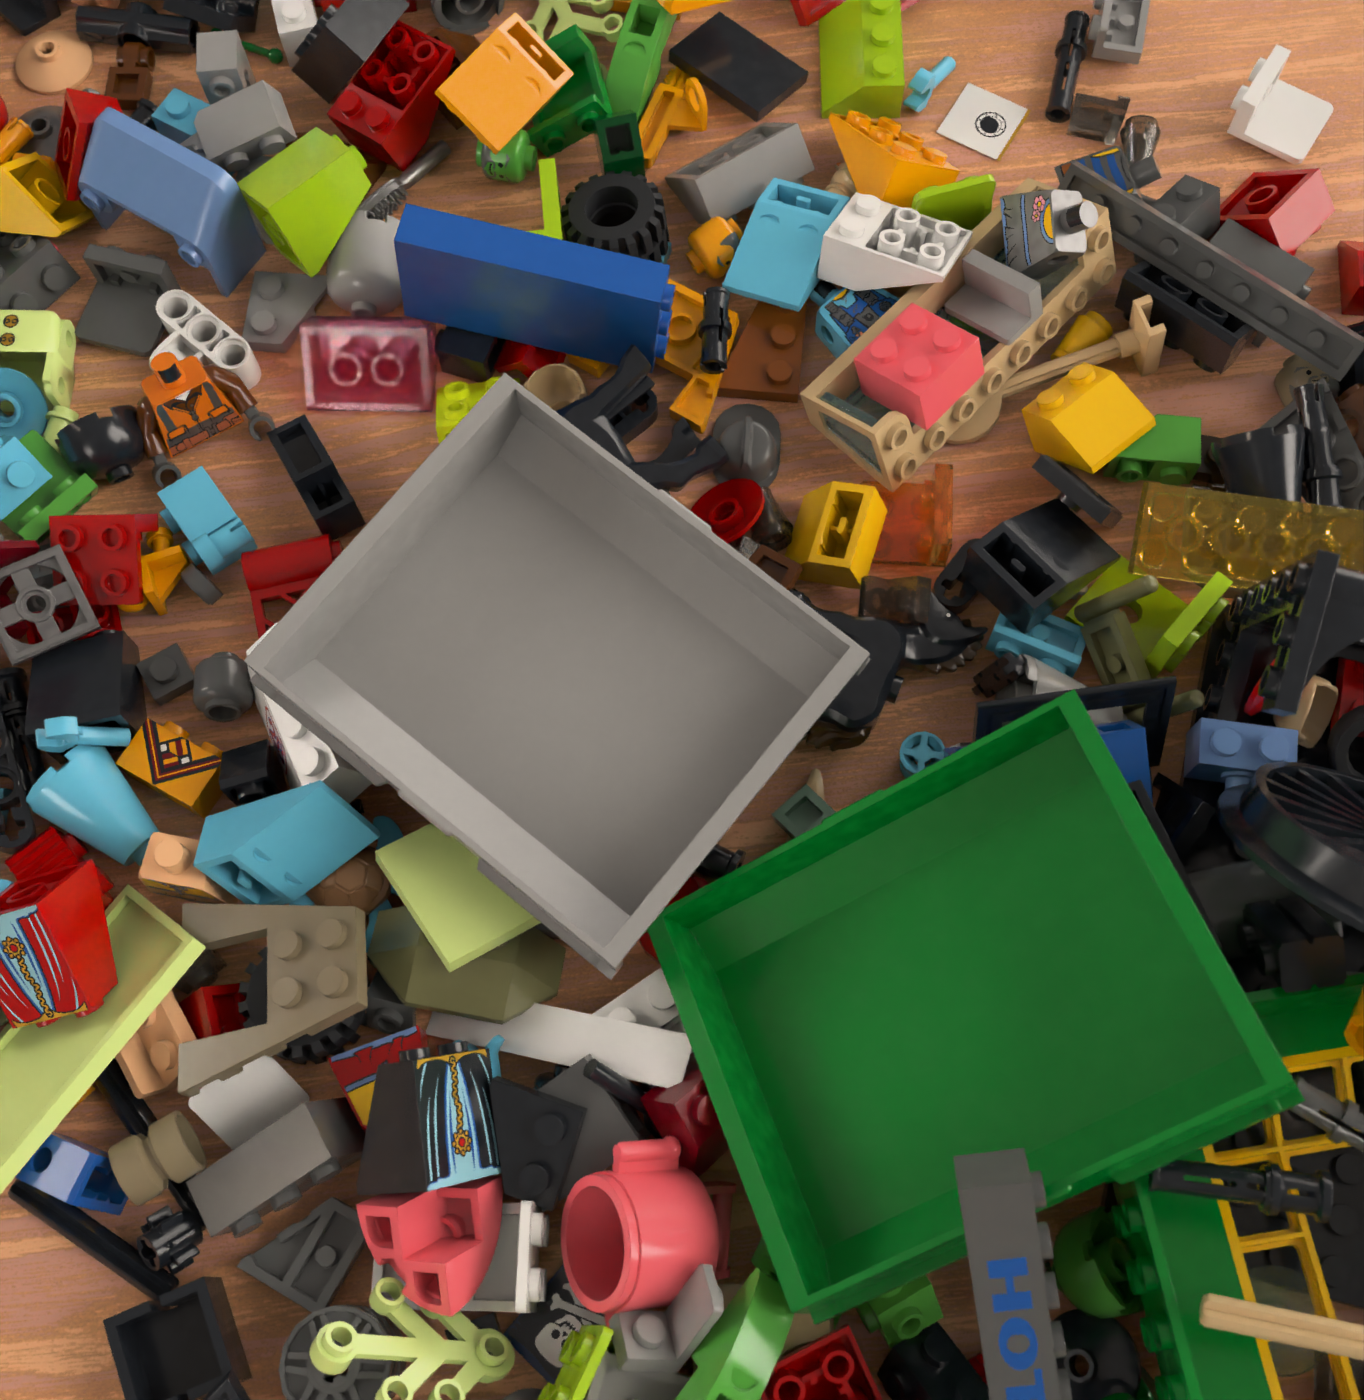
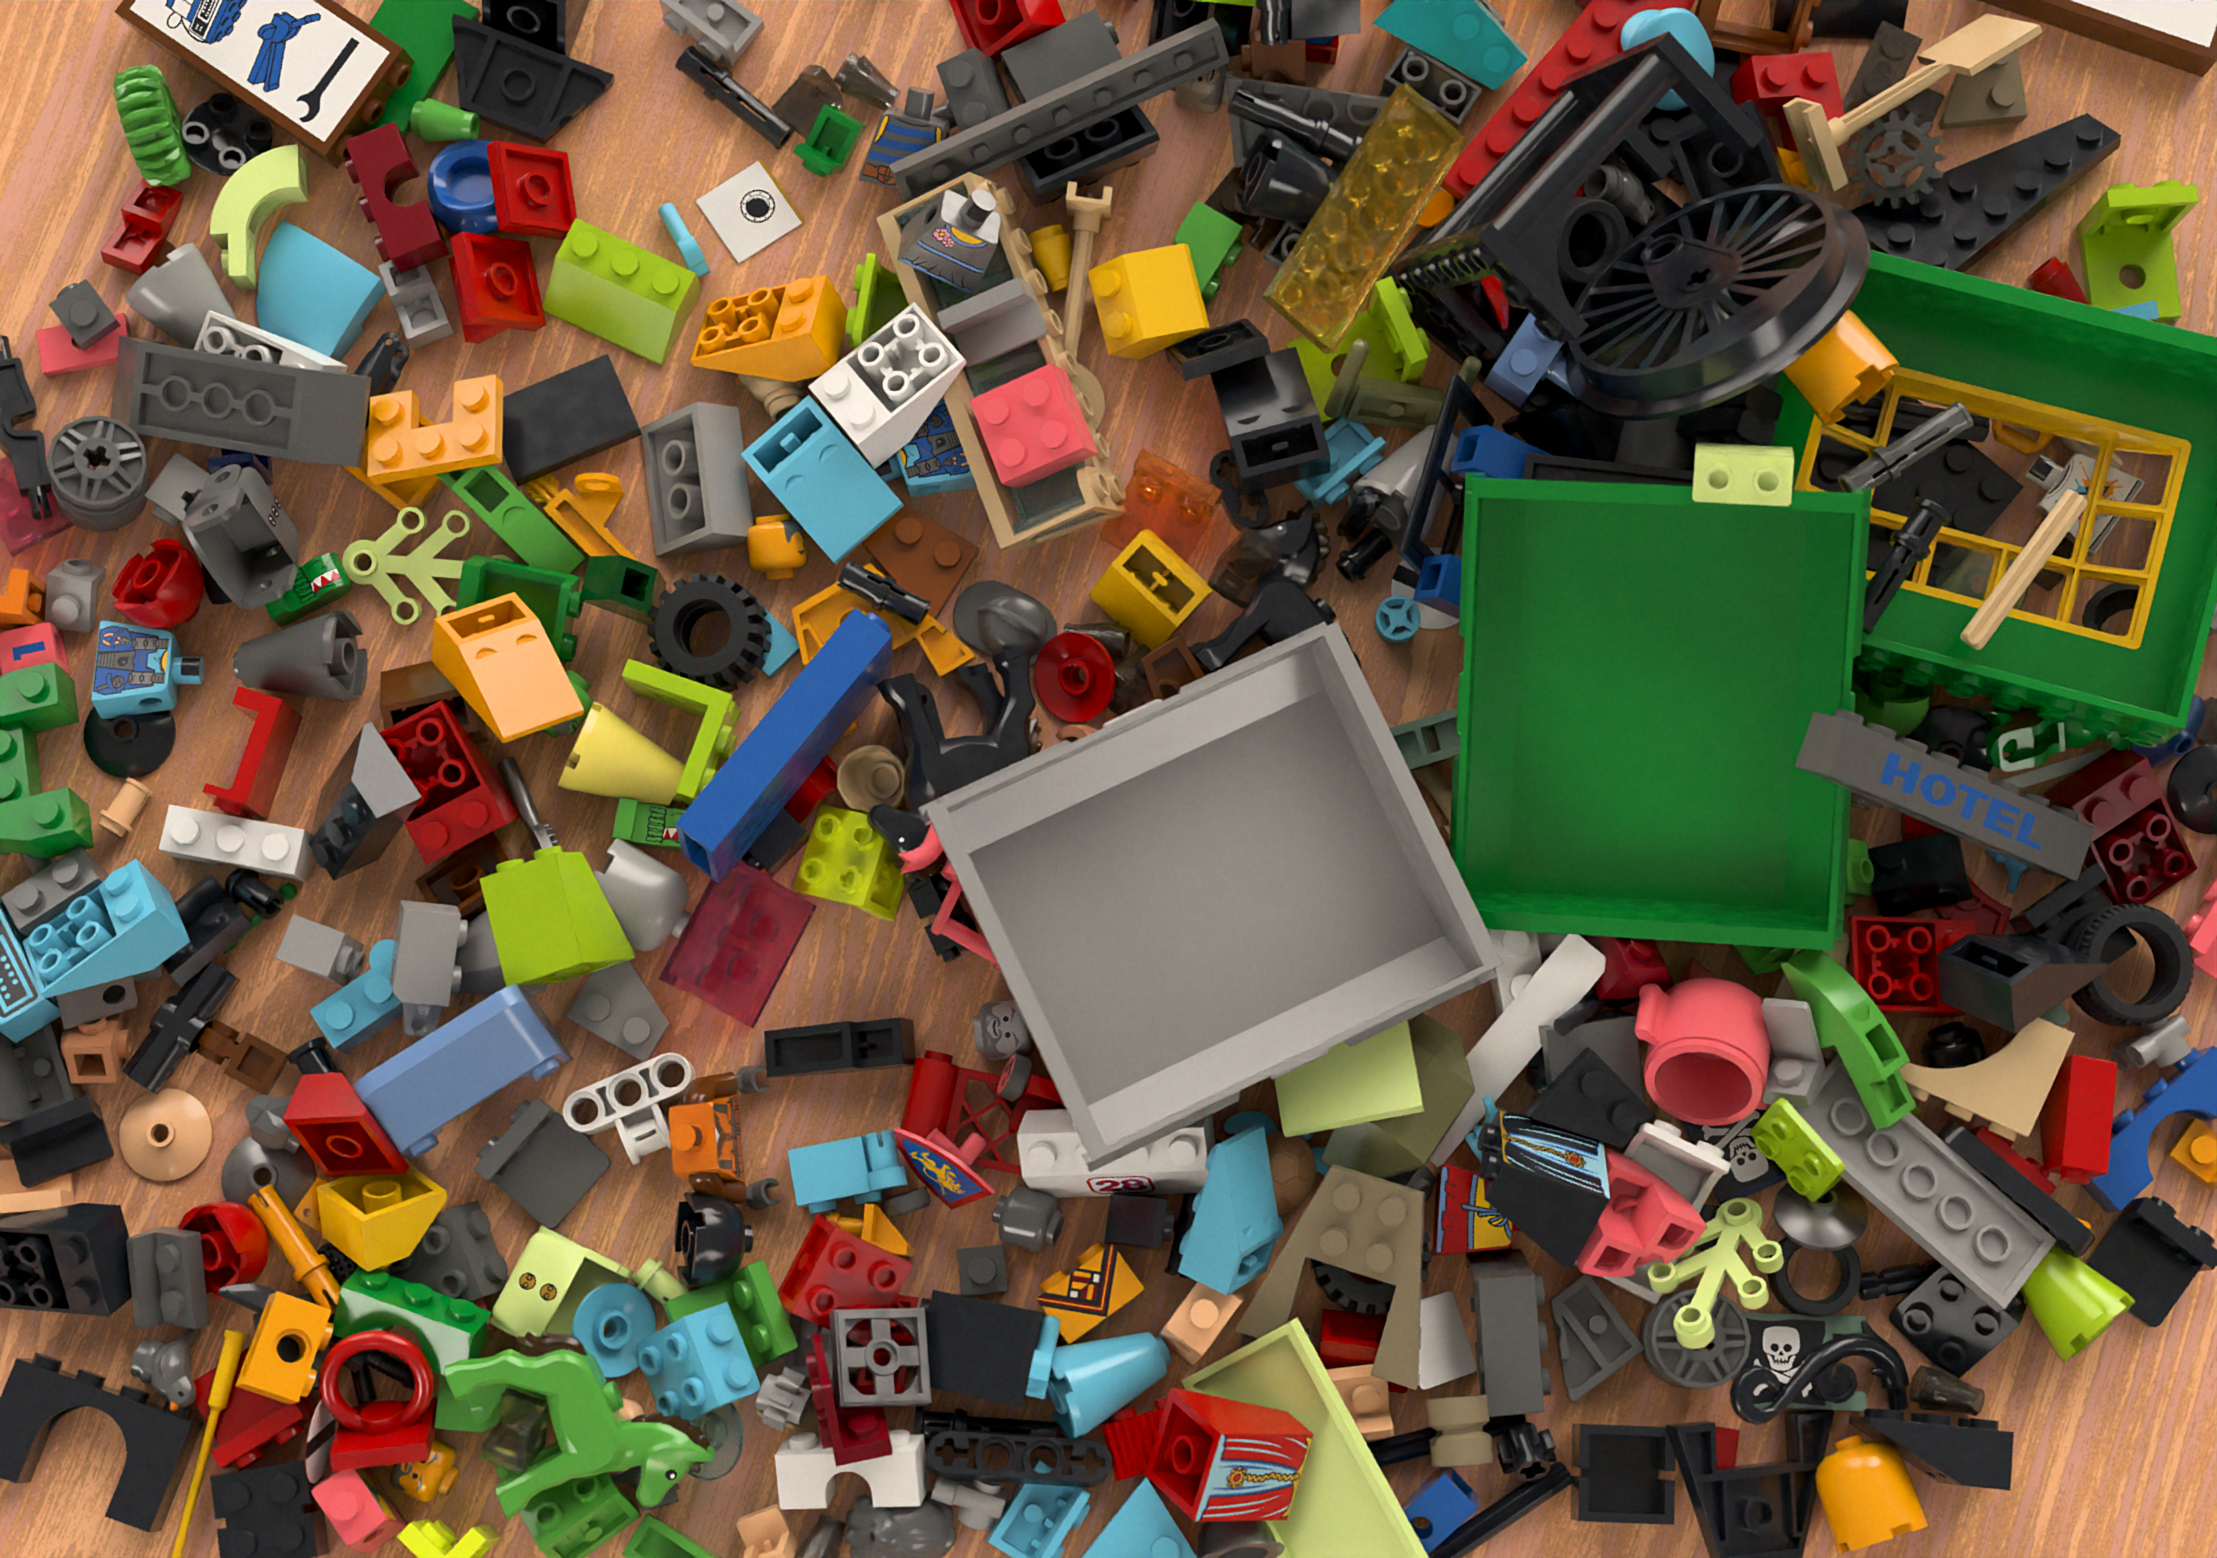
camera: 70 degrees left, 10 degrees up
(247, 601) = (945, 1166): none -> shield
(260, 30) = (245, 887): none -> black pin
(477, 187) = (620, 762): none -> light yellow cone
(958, 701) = (1363, 555): none -> black pin
(1071, 140) = (830, 142): none -> green bracket
(1237, 951) = (1743, 474): none -> yellowish green panel

